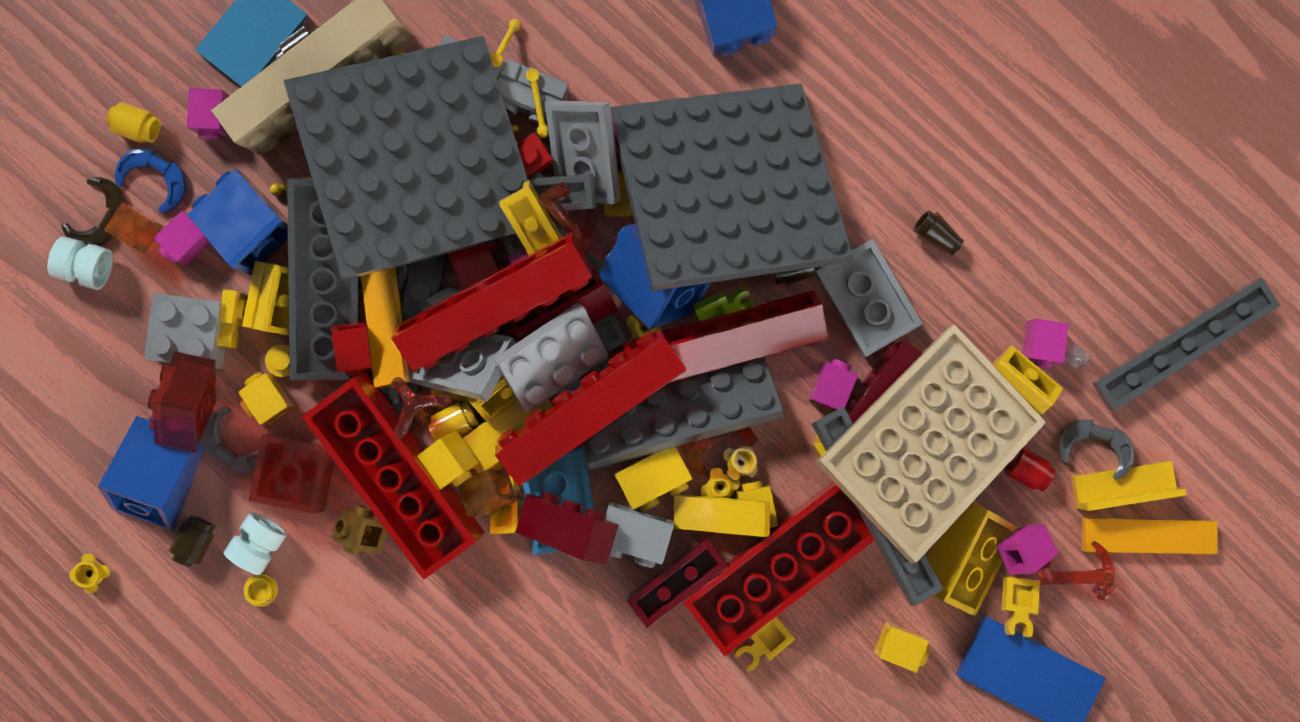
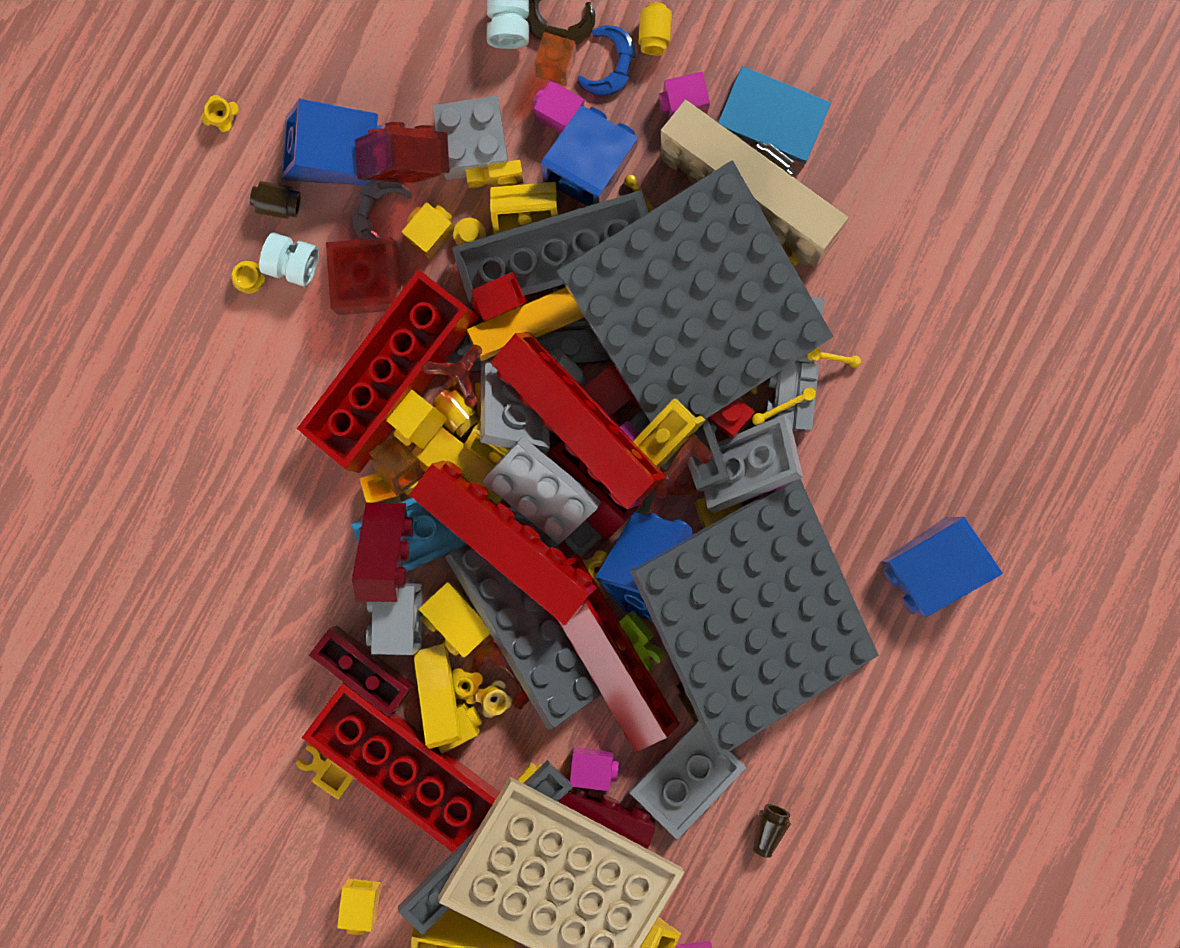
camera: 75 degrees right, 0 degrees up
(359, 531) = (326, 354): pearl gold brick -> none

